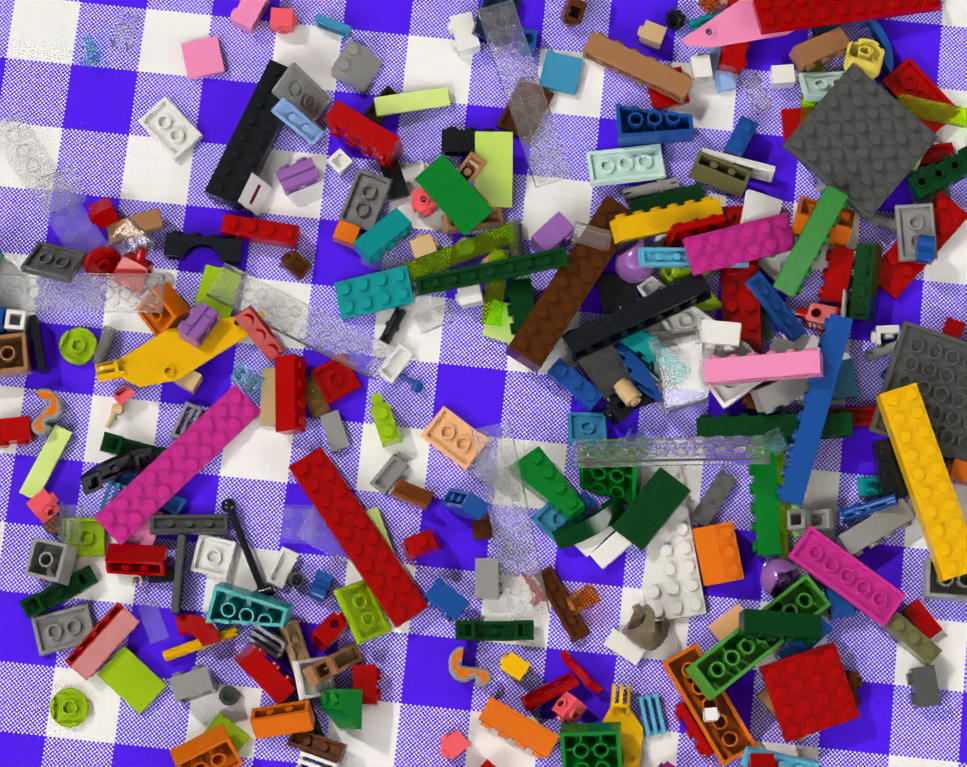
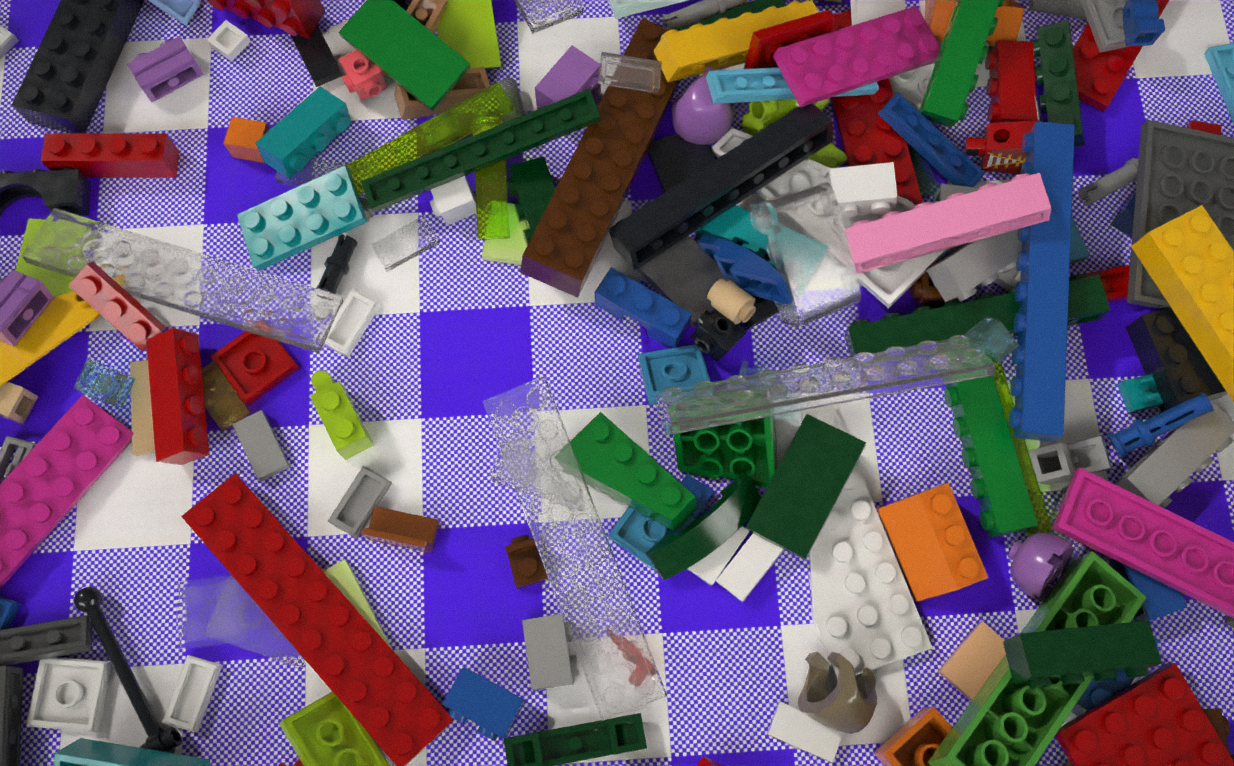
camera: 10 degrees left, 5 degrees down
(255, 194) = (96, 101): white sticker -> none
(295, 264) = (172, 196): reddish brown bracket -> none
(300, 579) = (208, 712): dark grey hinge -> none
(321, 586) = (260, 715): blue leg -> none
(365, 199) = (274, 83): flat silver tile -> none
(416, 384) = (388, 350): blue hand -> none
(421, 545) = (428, 611): red torso -> none
(423, 245) = (369, 135): tan brick -> none
(451, 437) = (455, 425): light nougat tile -> none
(465, 504) = (491, 529): blue brick -> none
(557, 597) = (688, 677): reddish brown tile -> none
(582, 599) = (719, 661): clear orange brick -> none
(713, 498) = (899, 453): flat silver tile -> none
(884, 331) = (1104, 156): white bracket -> none

